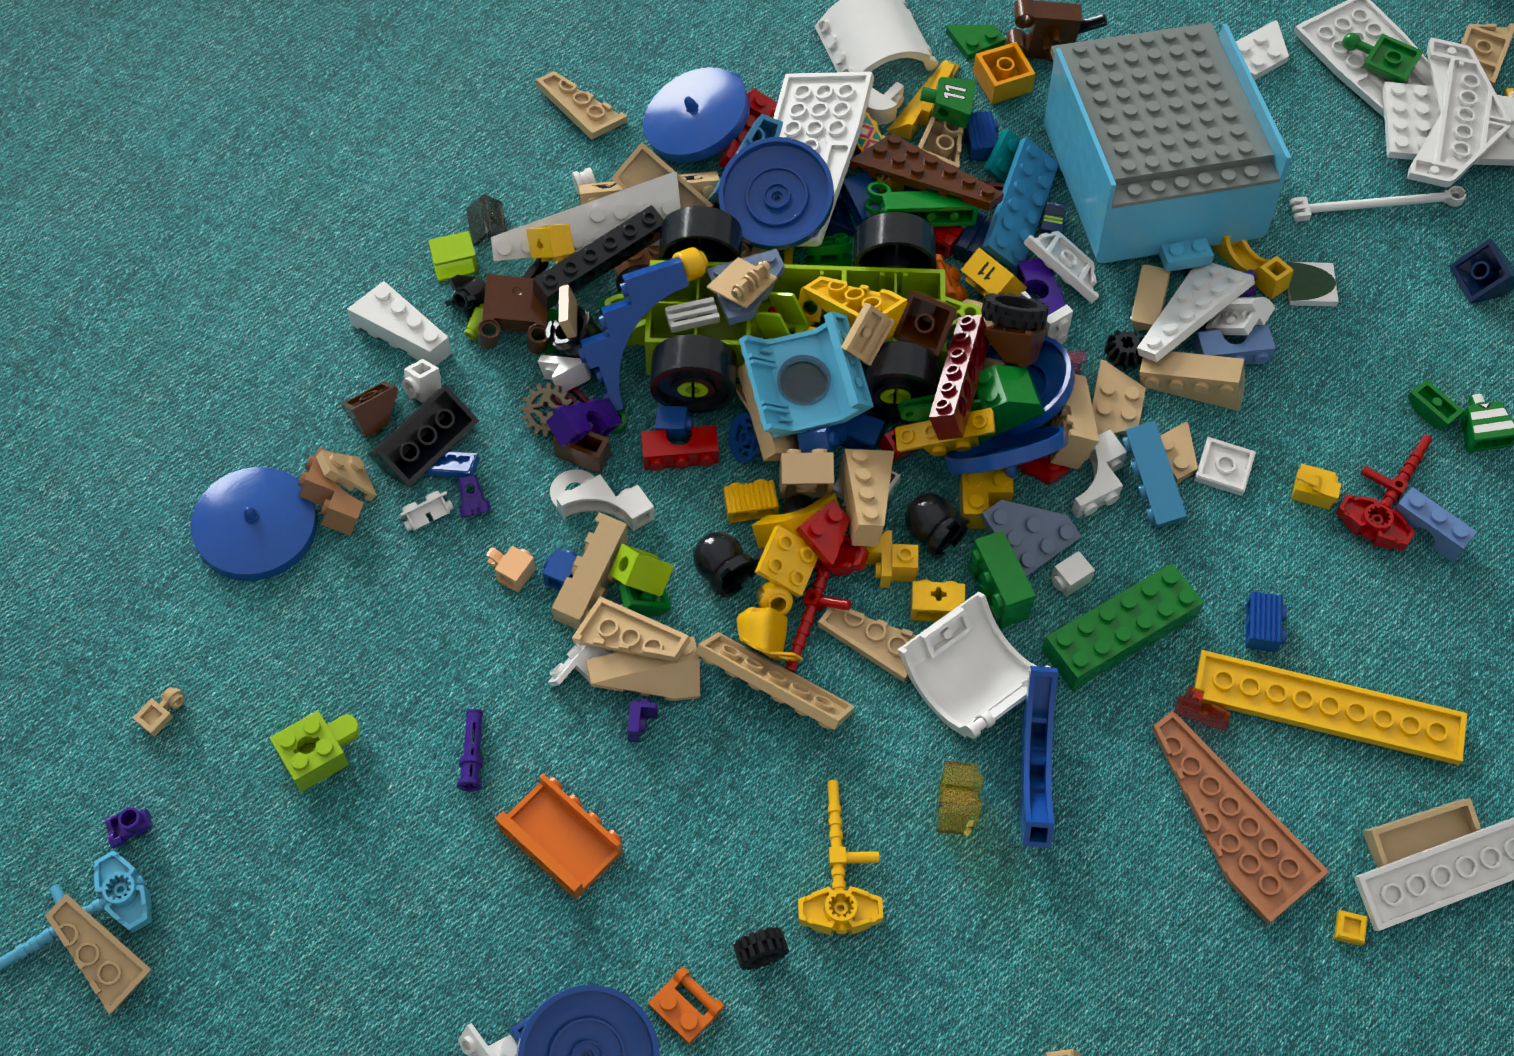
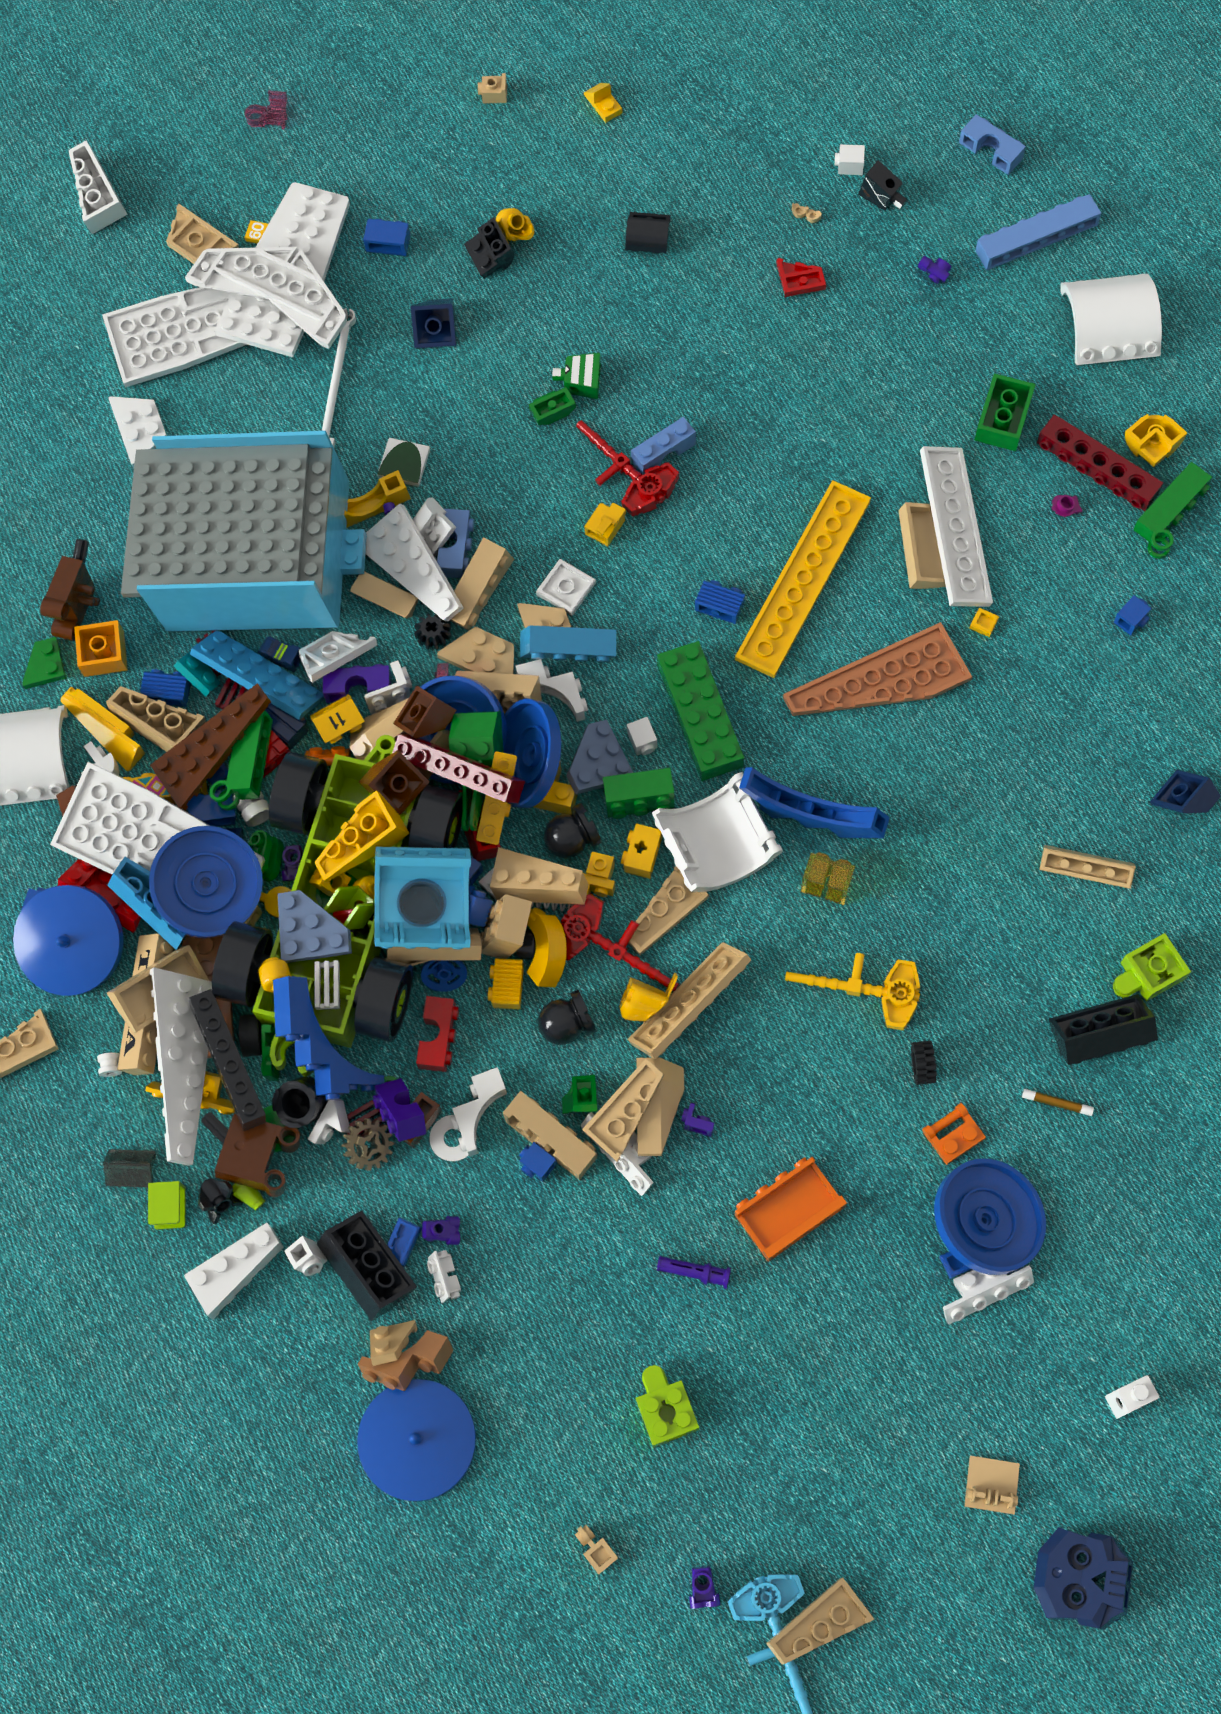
camera: 70 degrees left, 10 degrees up
(371, 408) = (318, 1309): reddish brown slope -> none
(513, 568) = (524, 1205): light nougat brick -> none
(550, 242) = (201, 1100): yellow brick -> none
(568, 311) = (286, 1099): tan tile -> none
(641, 570) = (568, 1089): lime piece -> none
(675, 421) = (411, 1032): blue brick -> none
(743, 281) = (315, 929): tan hinge -> none
(774, 597) = (611, 983): yellow head -> none
(786, 561) = (585, 963): yellow plate -> none
(825, 532) = (568, 922): red wing -> none
(867, 334) = (407, 832): tan plate -> none
(951, 100) = (133, 701): green torso -> none
(1014, 311) = (403, 713): black tyre -> none
(1191, 706) = (784, 676): clear red hinge -> none
(1387, 58) = (188, 317): green plate -> none

